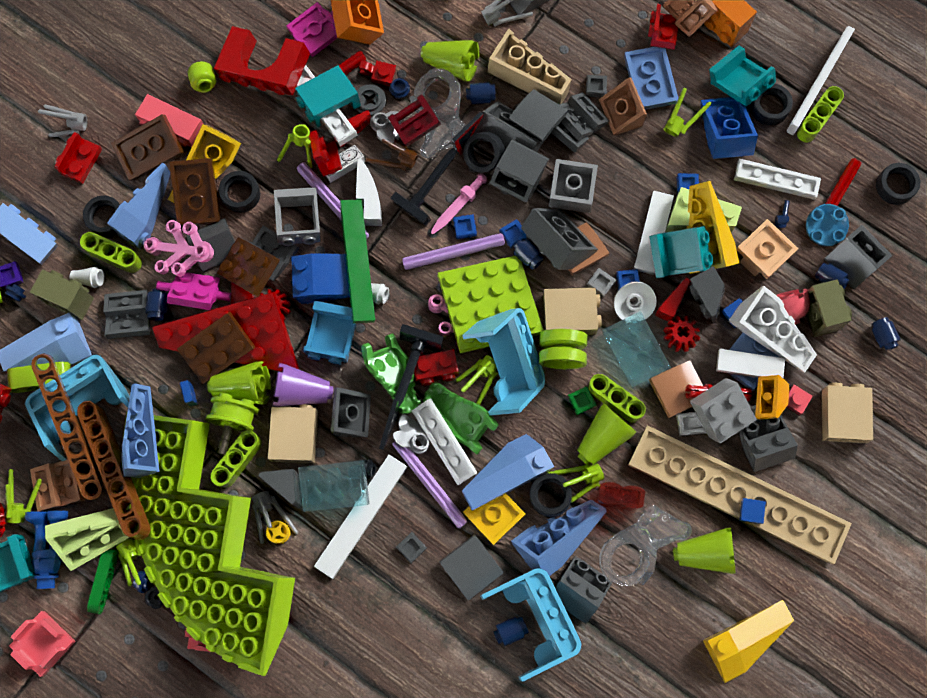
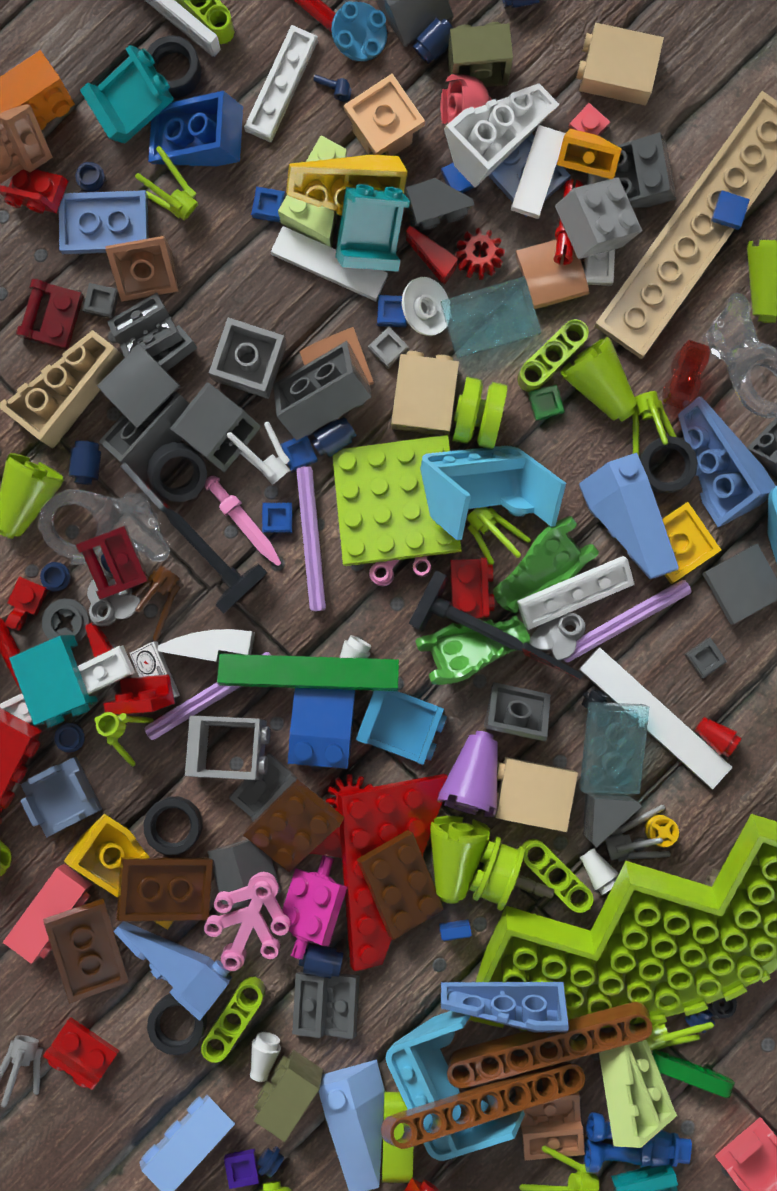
camera: 80 degrees left, 10 degrees up
(244, 488) = (599, 871): none -> white cone
(249, 115) = (59, 797): none -> sand blue panel
(291, 115) = (69, 737): none -> dark blue plate
(352, 566) = (718, 736): none -> red cone
(498, 215) = (272, 467): none -> white plant
(580, 61) = (59, 316): none -> dark red plate
(681, 64) = (90, 176): none -> dark blue plate

